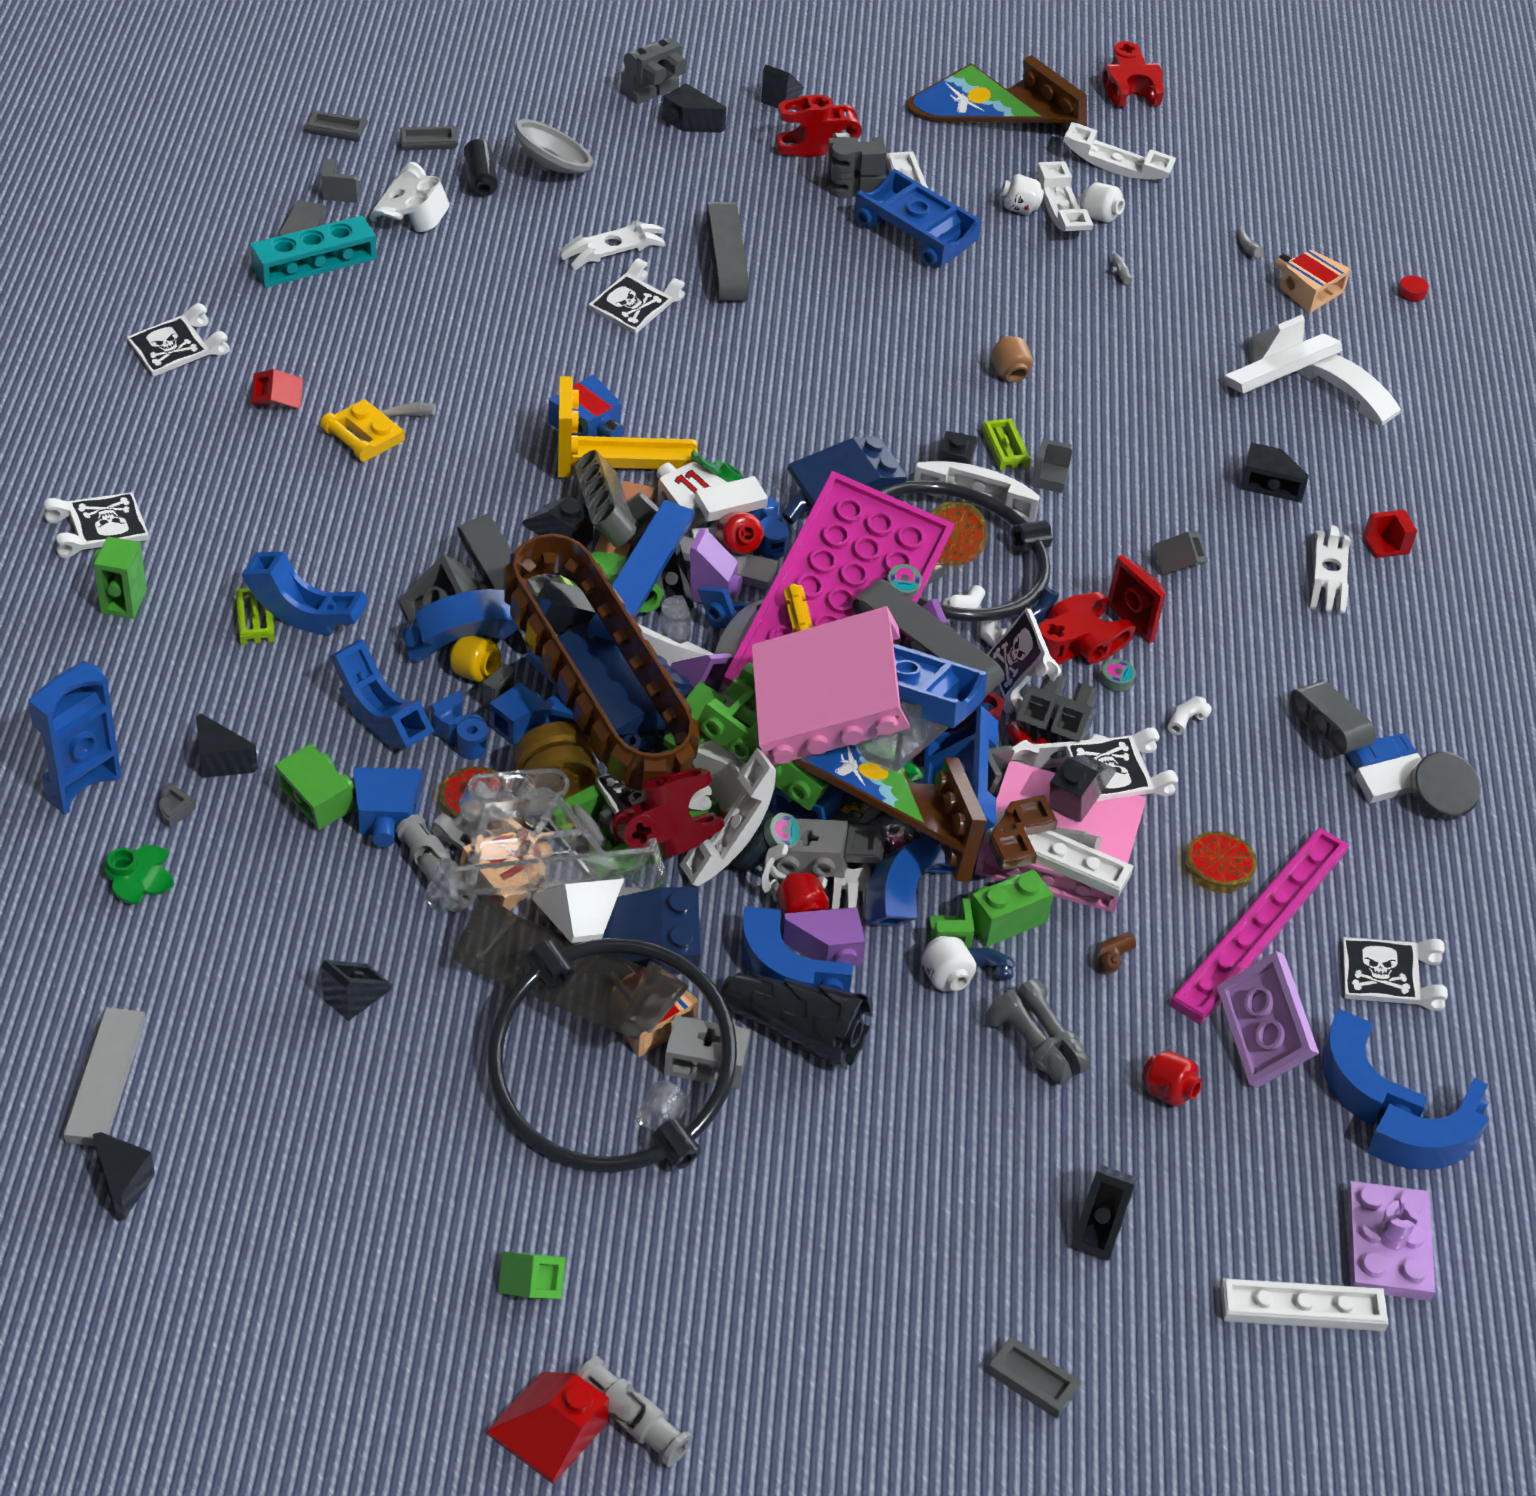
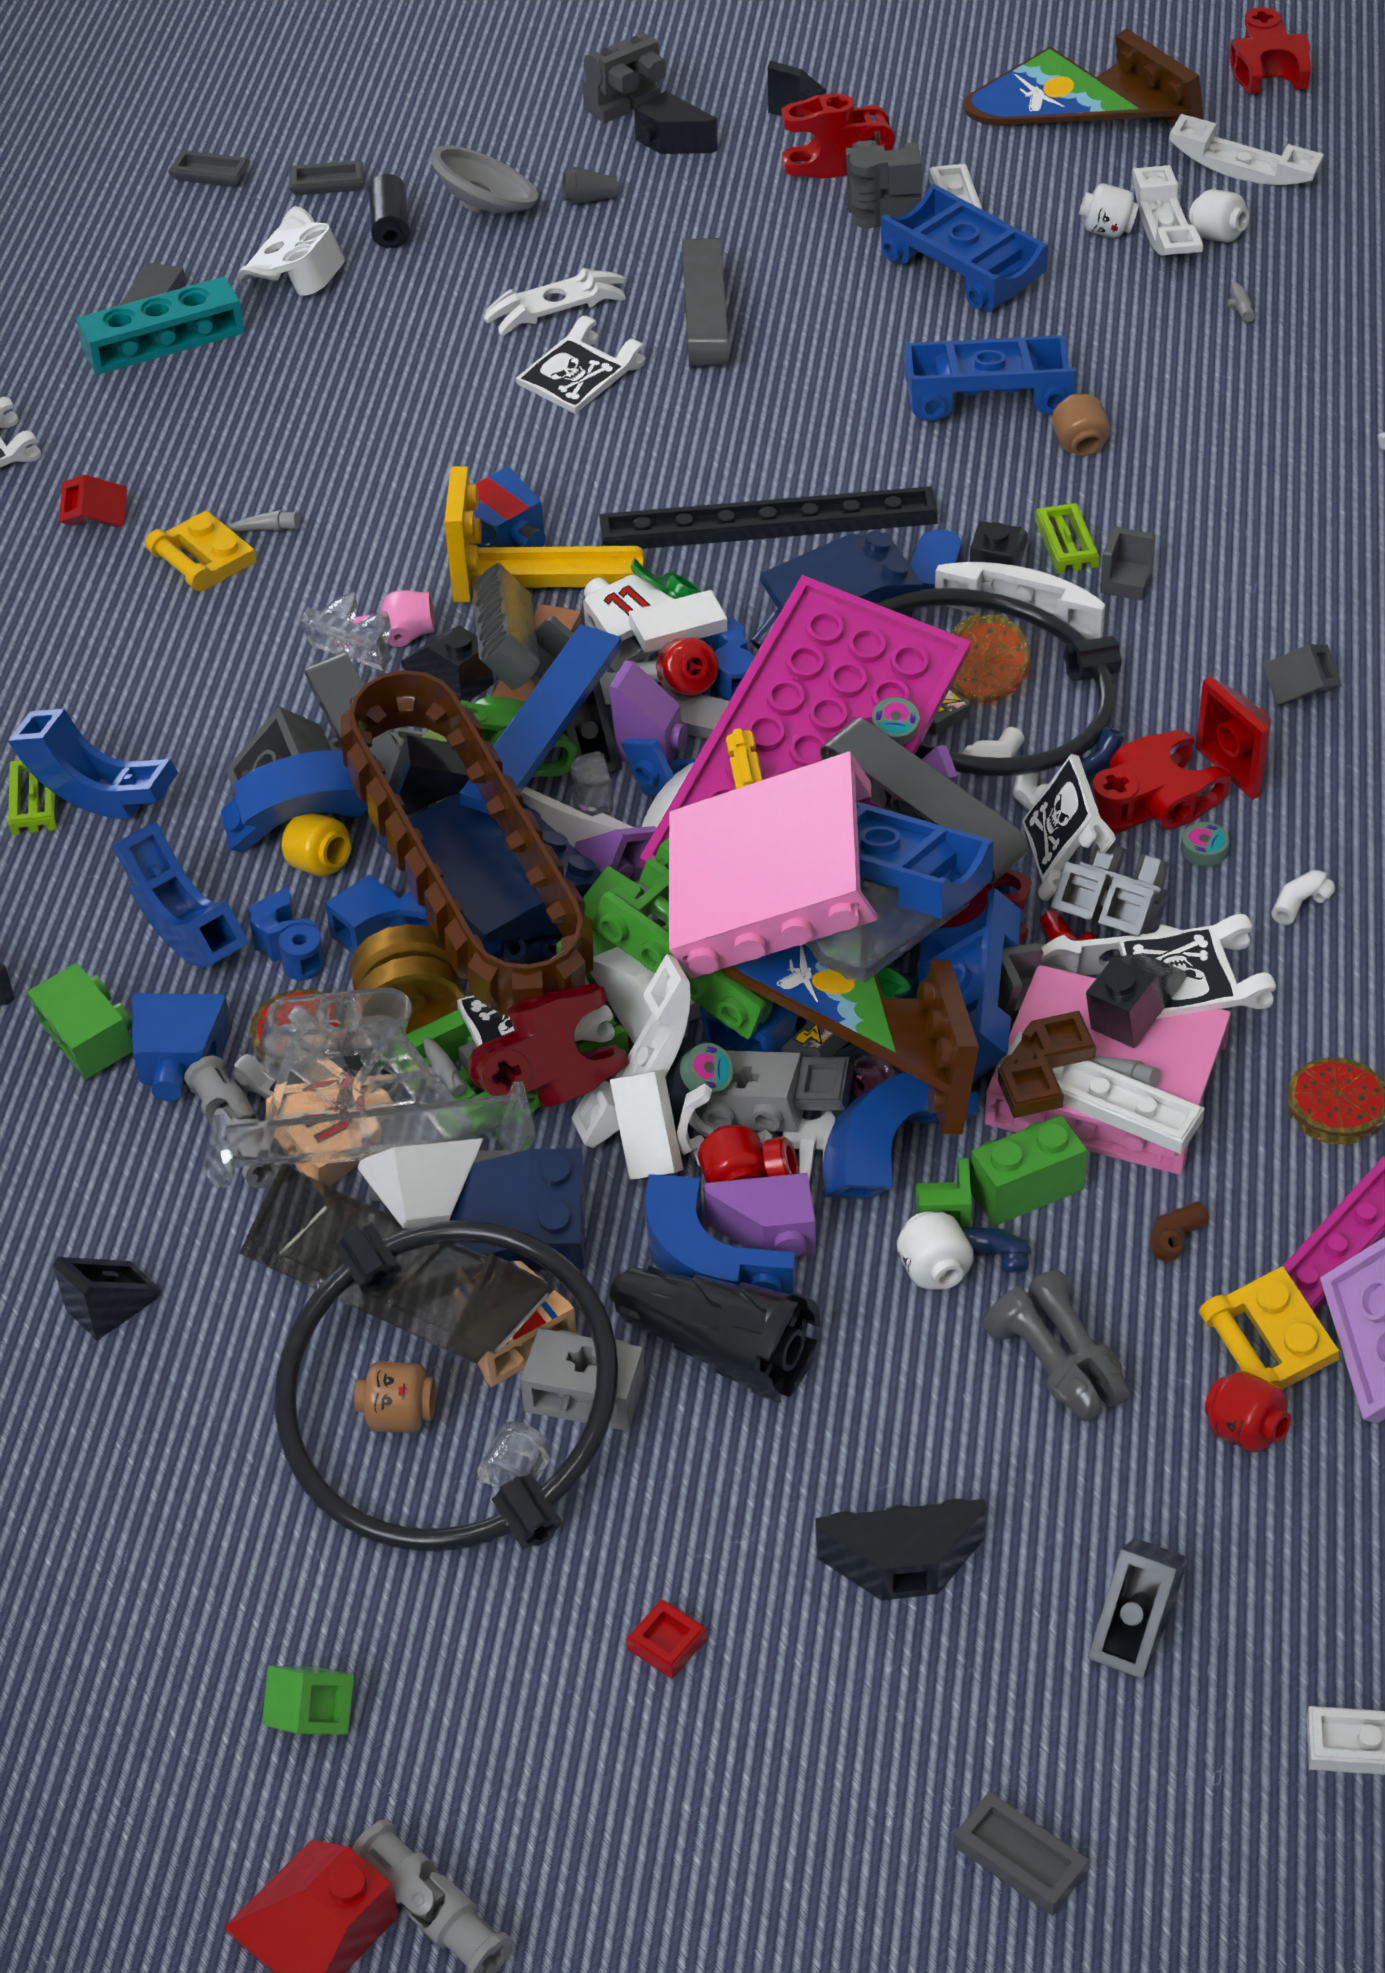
camera: 10 degrees right, 0 degrees up
(338, 186) = (203, 242): dark grey panel -> none
(474, 498) = (336, 632): none -> clear tile
(498, 684) = (342, 875): dark grey tile -> none
(521, 487) = (409, 614): none -> bright pink piece
(574, 1063) = (396, 1397): none -> medium nougat head
(630, 155) = (587, 186): none -> dark grey cone
(739, 870) = (646, 1124): none -> white tile
(779, 1233) = (666, 1638): none -> red tile
(786, 421) = (770, 518): none -> black tile
(836, 895) = (780, 1157): none -> red tile
(911, 451) = (934, 549): none -> blue tile
(930, 311) = (979, 365): none -> blue piece
(940, 1170) = (903, 1547): none -> black slope
(1192, 1017) = (1282, 1322): none -> yellow plate

